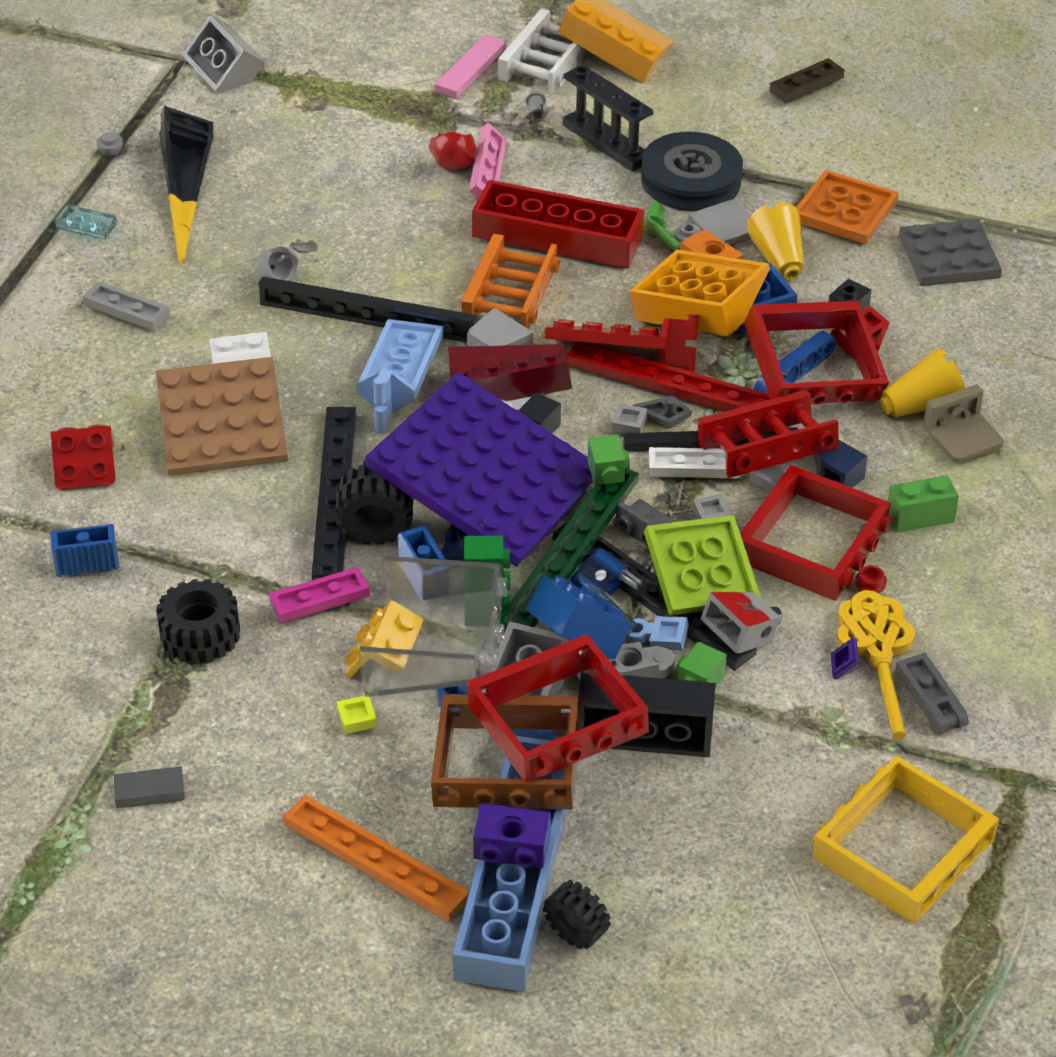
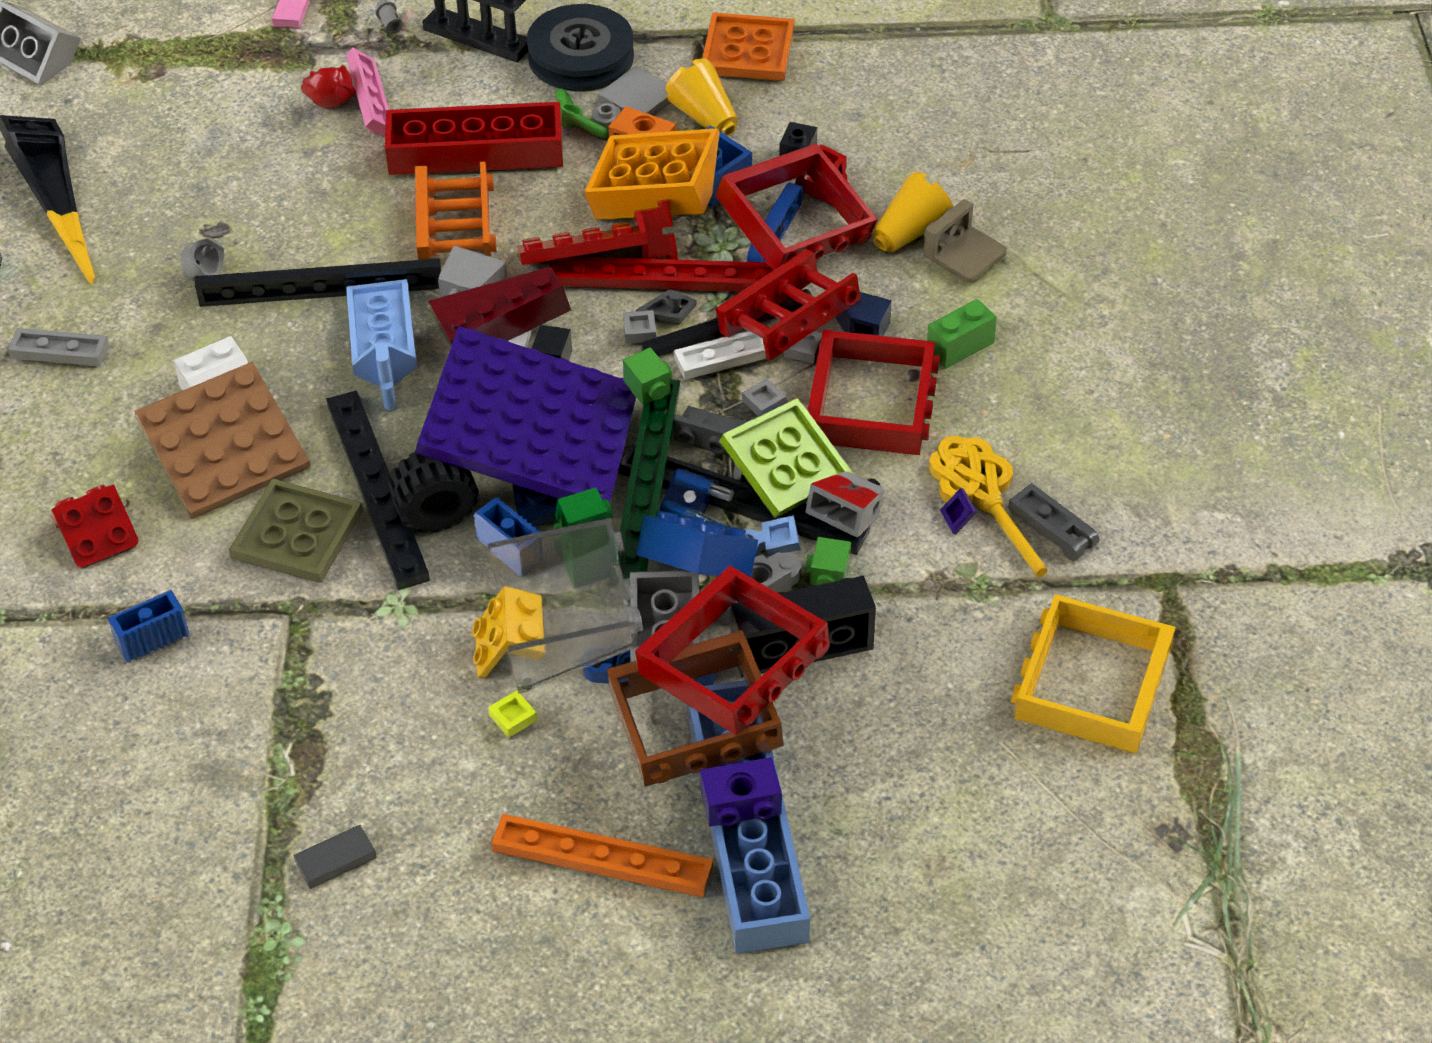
camera: 20 degrees left, 5 degrees up
(198, 621) = (307, 687): black tyre -> none
(248, 508) = (296, 530): none -> olive plate
(319, 595) = (414, 600): dark pink plate -> none
(576, 914) = (829, 849): black tyre -> none
(871, 579) = (945, 424): red plate -> none
(950, 252) = (867, 68): dark grey plate -> none

